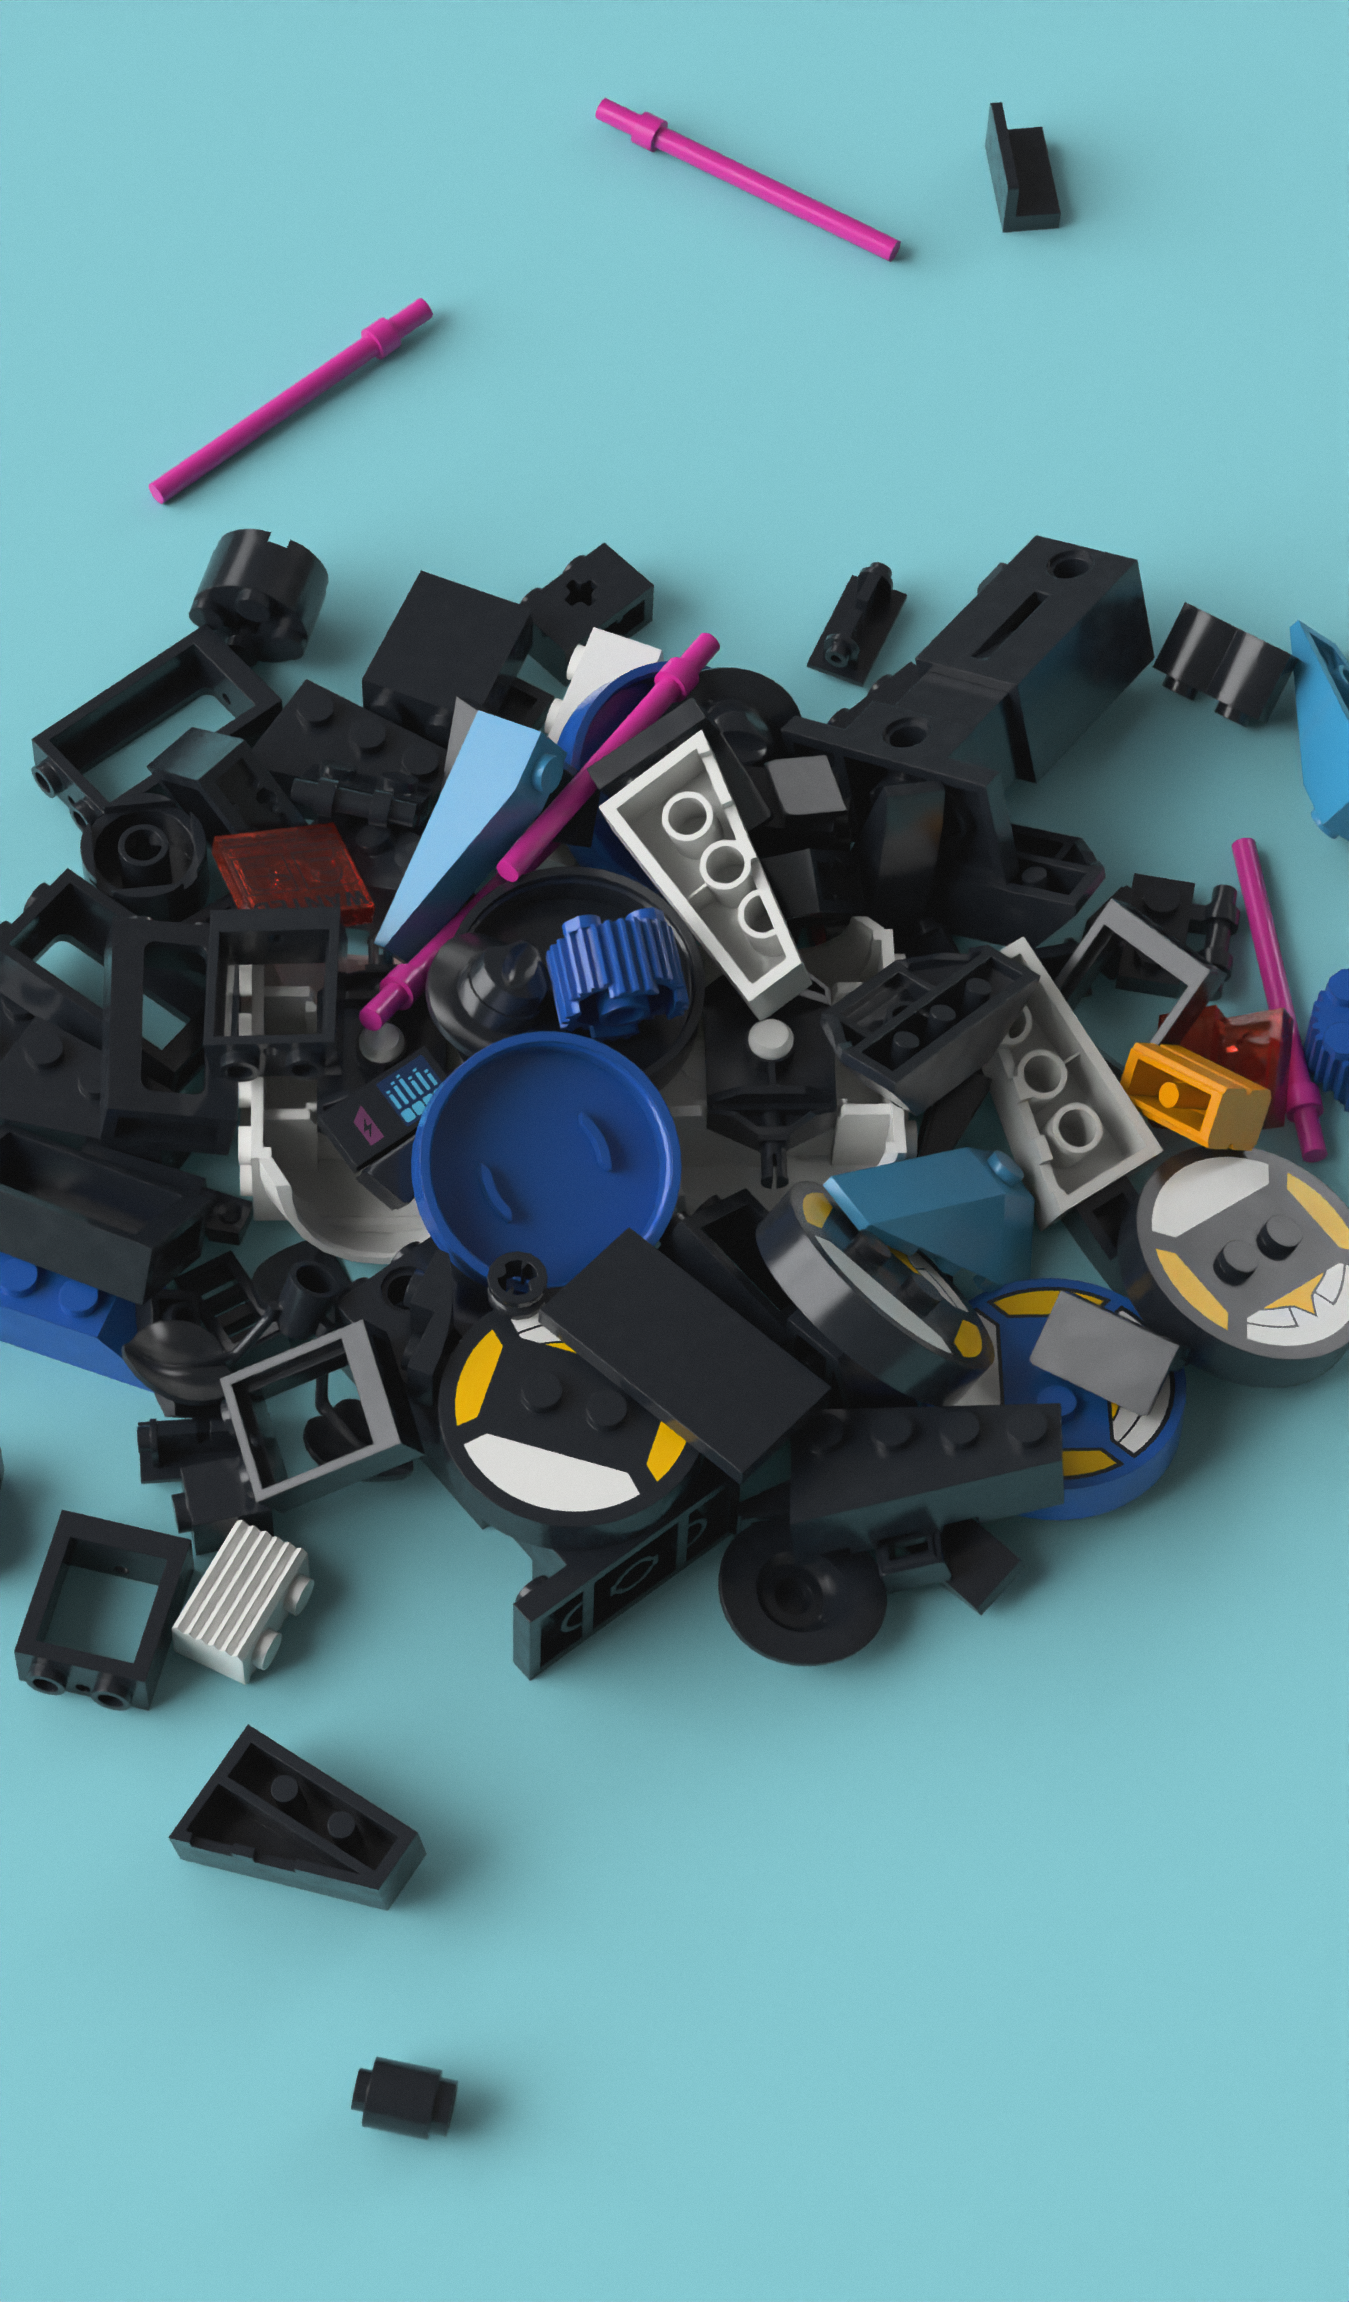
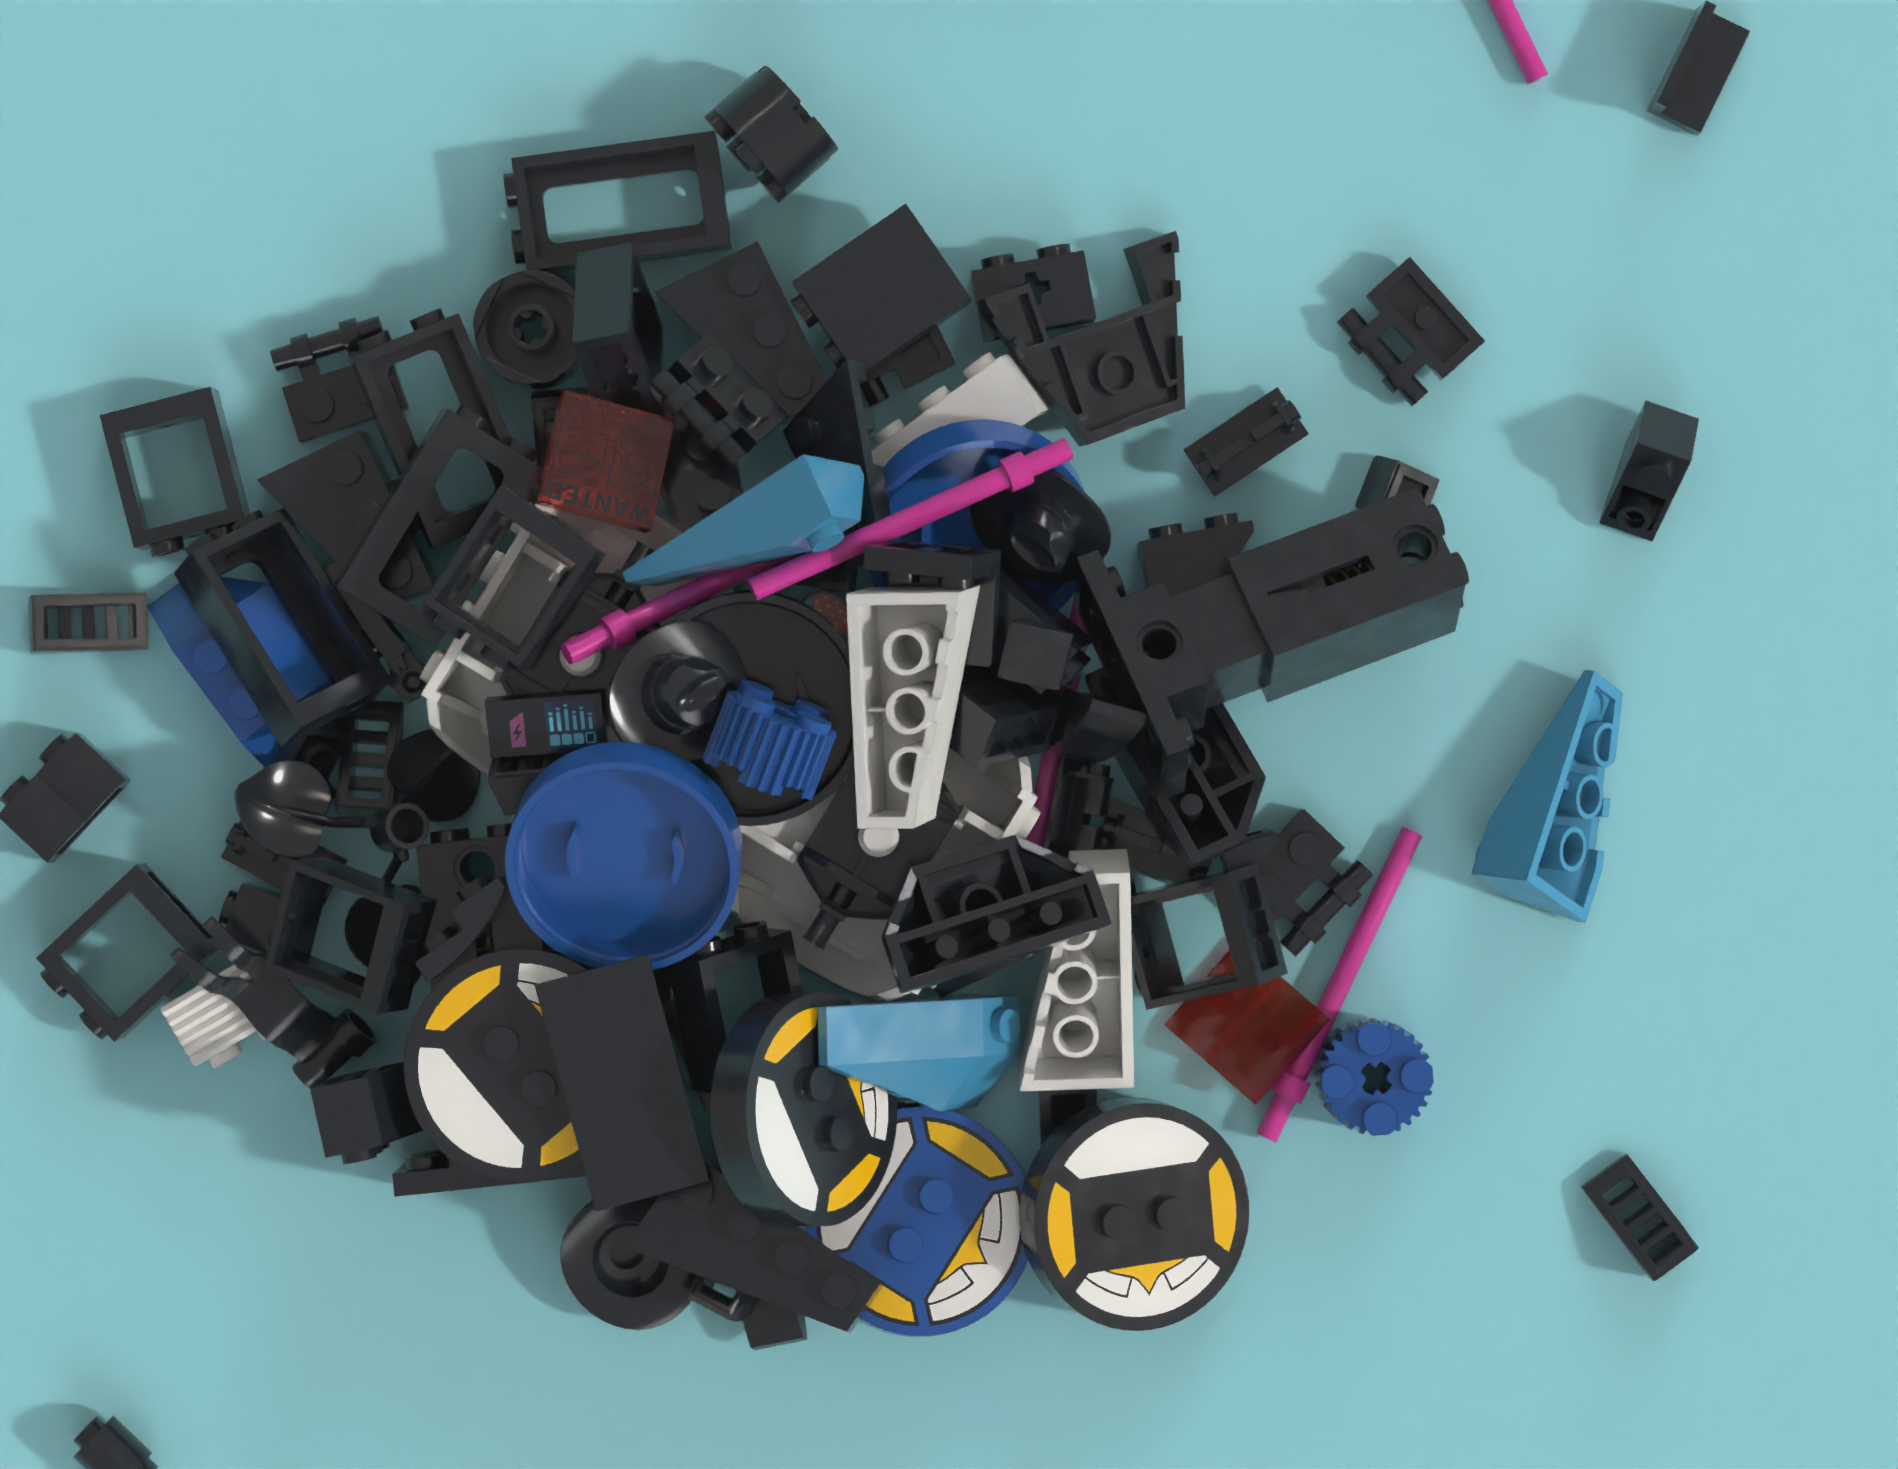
camera: 35 degrees right, 30 degrees up
(296, 1827) = (160, 1218): black wedge -> none
(298, 1553) = (282, 1011): none -> black flag
(444, 1585) = (363, 1112): none -> black wedge
(524, 1266) = (546, 962): black bush -> none
(679, 610) = (1111, 370): none -> black wing
(938, 459) = (1422, 319): none -> black plate
(1107, 1353) = (970, 1234): panel -> none
(1195, 1096) = (1184, 1063): light orange brick -> none
(1221, 462) = (1650, 470): none -> black slope
(1225, 664) = (1507, 672): black brick -> none

